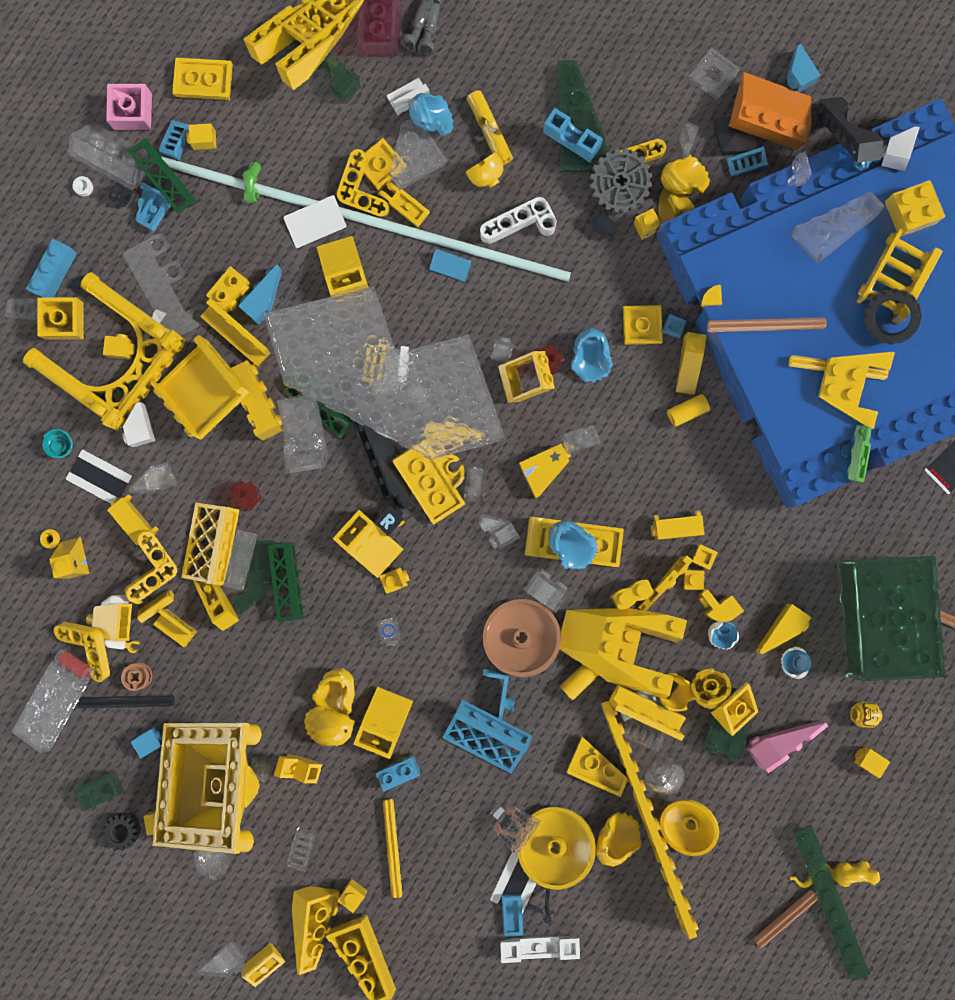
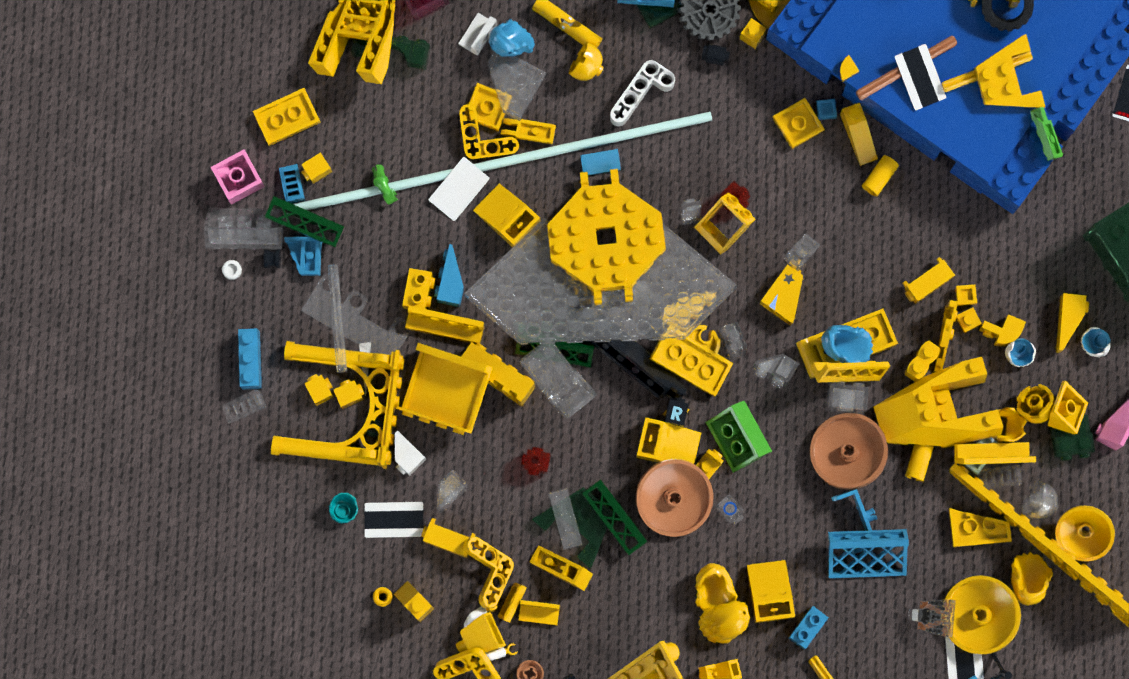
camera: 30 degrees left, 5 degrees down
(60, 318) = (283, 396): yellow brick -> none
(95, 329) = (319, 389): none -> yellow brick
(144, 276) = (337, 320): none -> clear axle
(221, 545) = (540, 511): yellow fence -> none
(346, 593) = (674, 497): none -> nougat dish
(403, 358) = (613, 265): none -> yellow plate
(433, 570) = (738, 436): none -> bright green slope
(551, 564) = (849, 371): none -> yellow fence
(591, 356) = (770, 174): dark azure piece -> none
(774, 339) = (920, 77): none -> sticker

